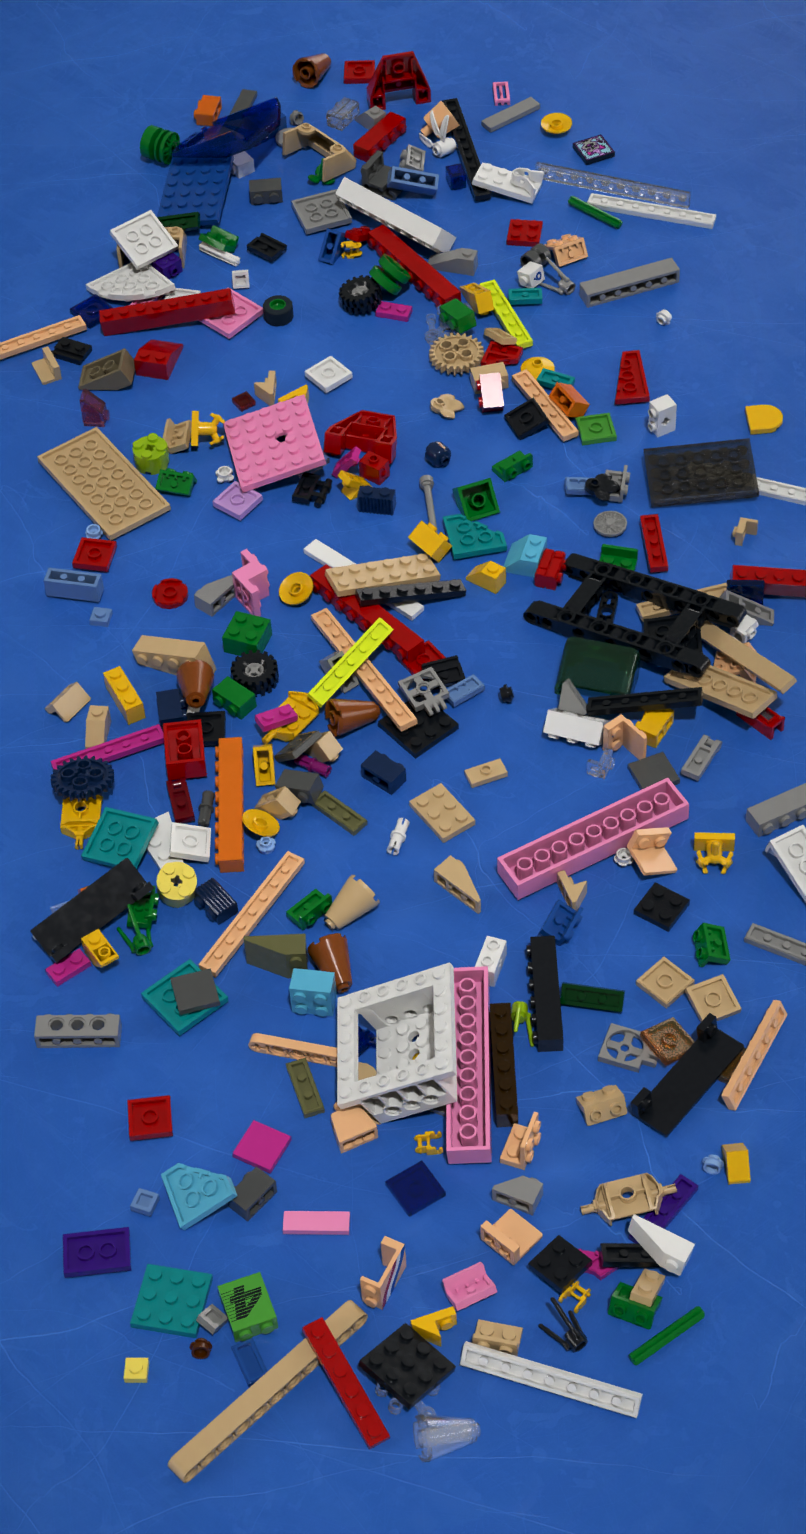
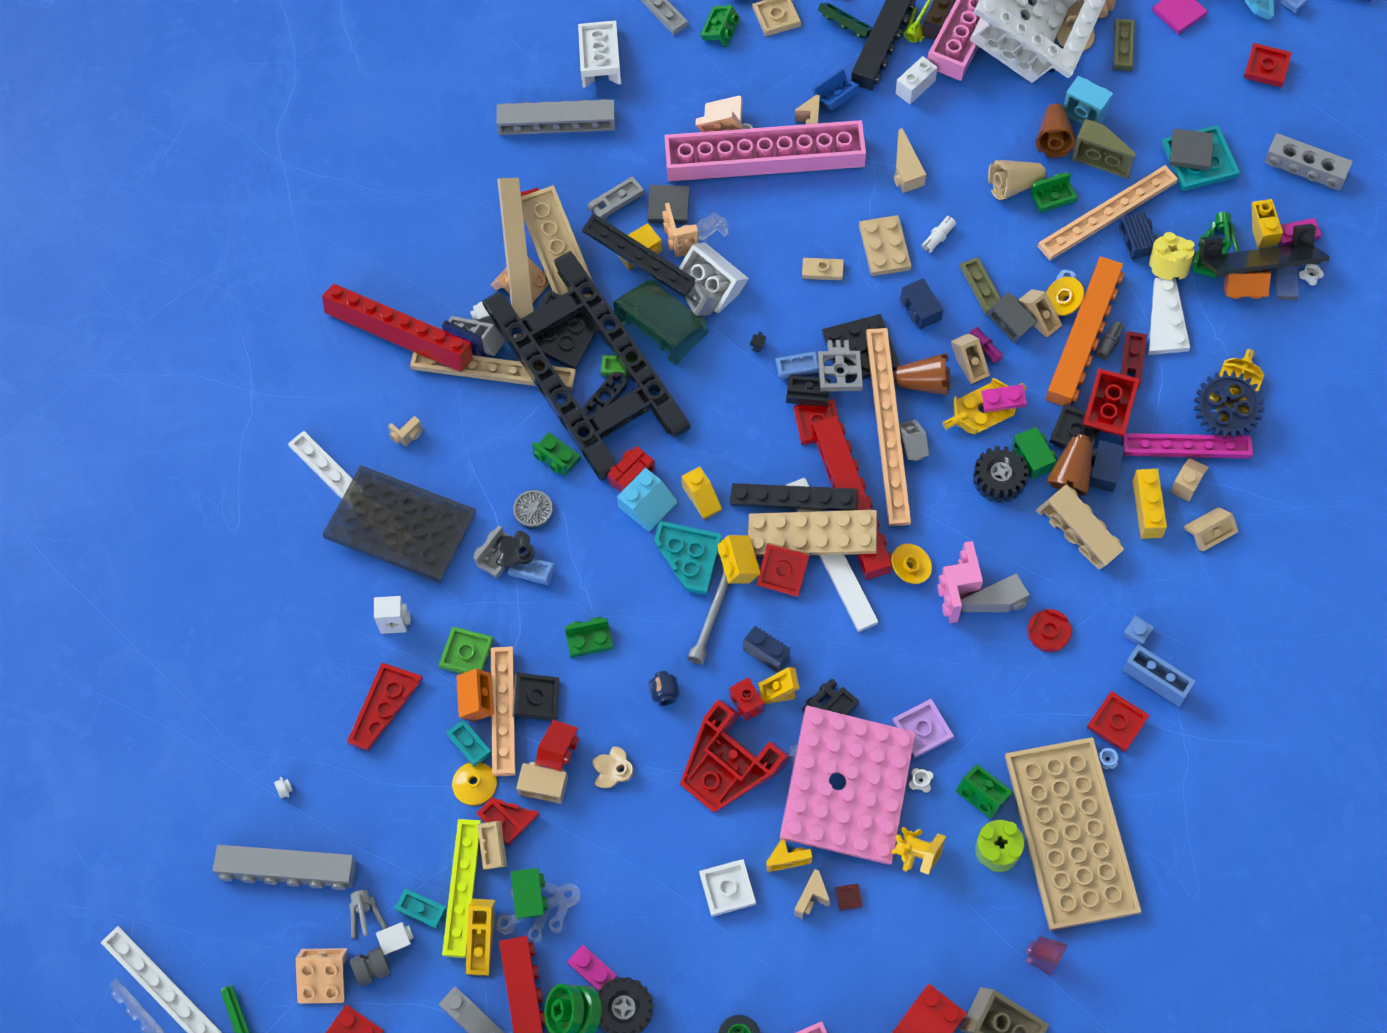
camera: 155 degrees left, 15 degrees up
(119, 837) = (1210, 331): teal plate -> none
(177, 435) = (954, 866): tan bracket -> none
(190, 842) = (1141, 302): white plate -> none
(246, 633) = (989, 523): green brick -> none
(264, 764) = (1033, 363): yellow slope -> none
(293, 1049) = (1110, 66): light nougat beam -> none
(297, 746) = (994, 359): dark grey tile -> none
(350, 459) = (776, 715): dark pink plate -> none
(350, 662) = (901, 422): neon yellow plate -> none
(392, 547) = (783, 569): none -> red plate
(456, 353) = (564, 826): tan gear -> none
(476, 499) = (656, 603): green slope -> none
(654, 543) = (505, 459): red plate -> none
(661, 907) = (739, 77): black plate -> none
(714, 845) = (662, 107): yellow piece -> none
(763, 418) = (280, 578): yellow tile -> none

